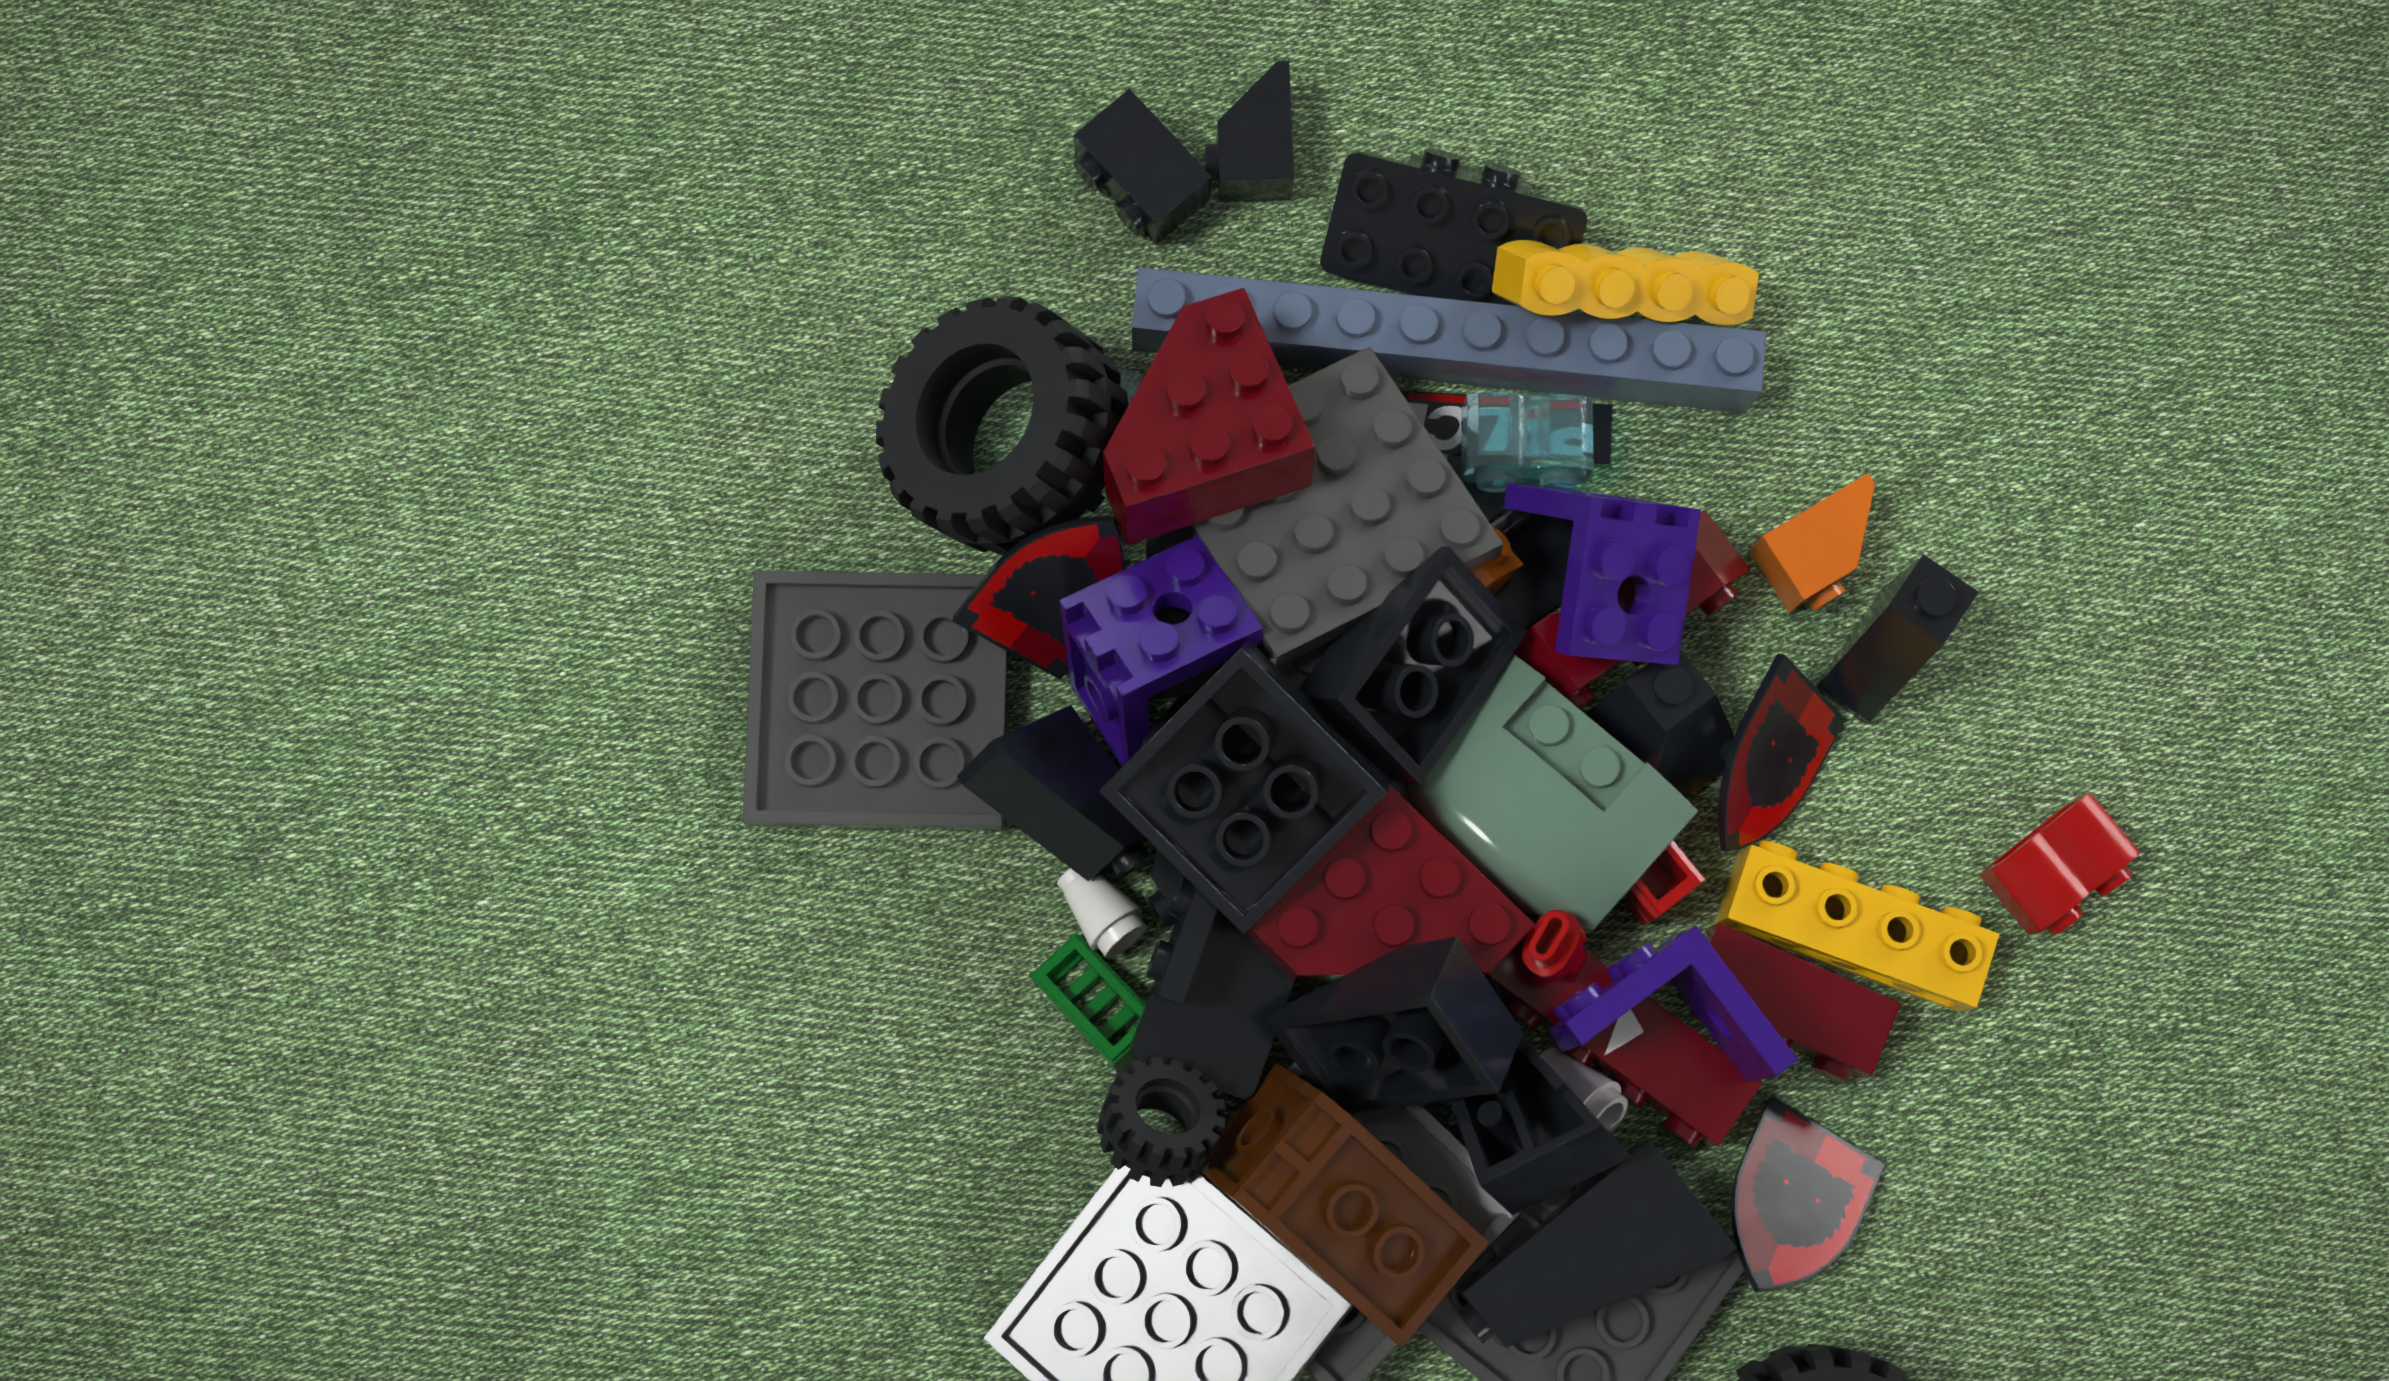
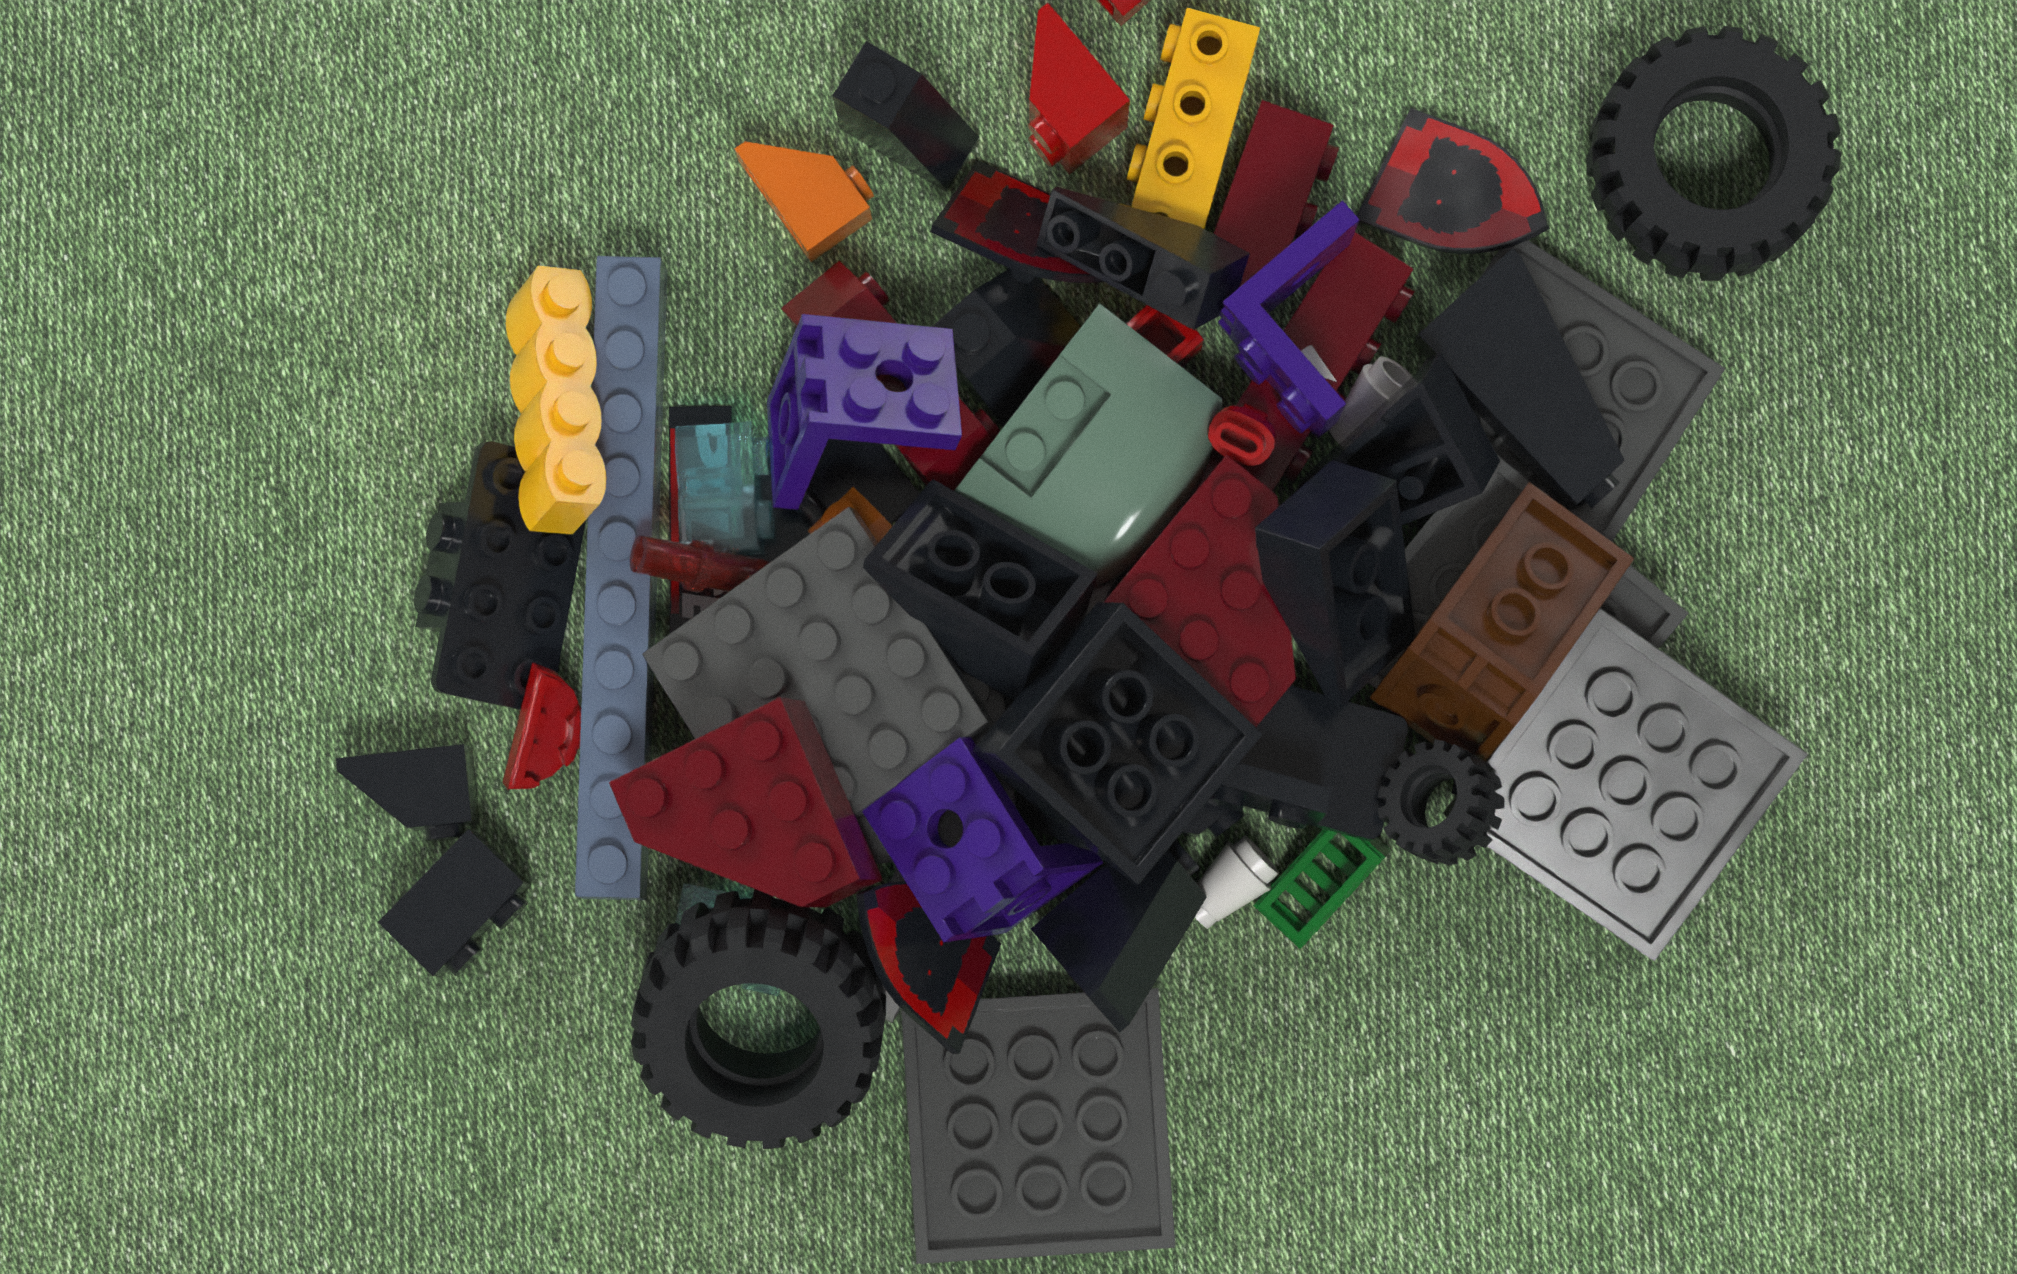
camera: 85 degrees left, 5 degrees up
(1303, 258) = (545, 730): none -> red tile
(1454, 398) = (693, 564): none -> clear red pin
(1746, 863) = (1144, 255): none -> black slope
(1905, 806) = (1071, 98): none -> red slope

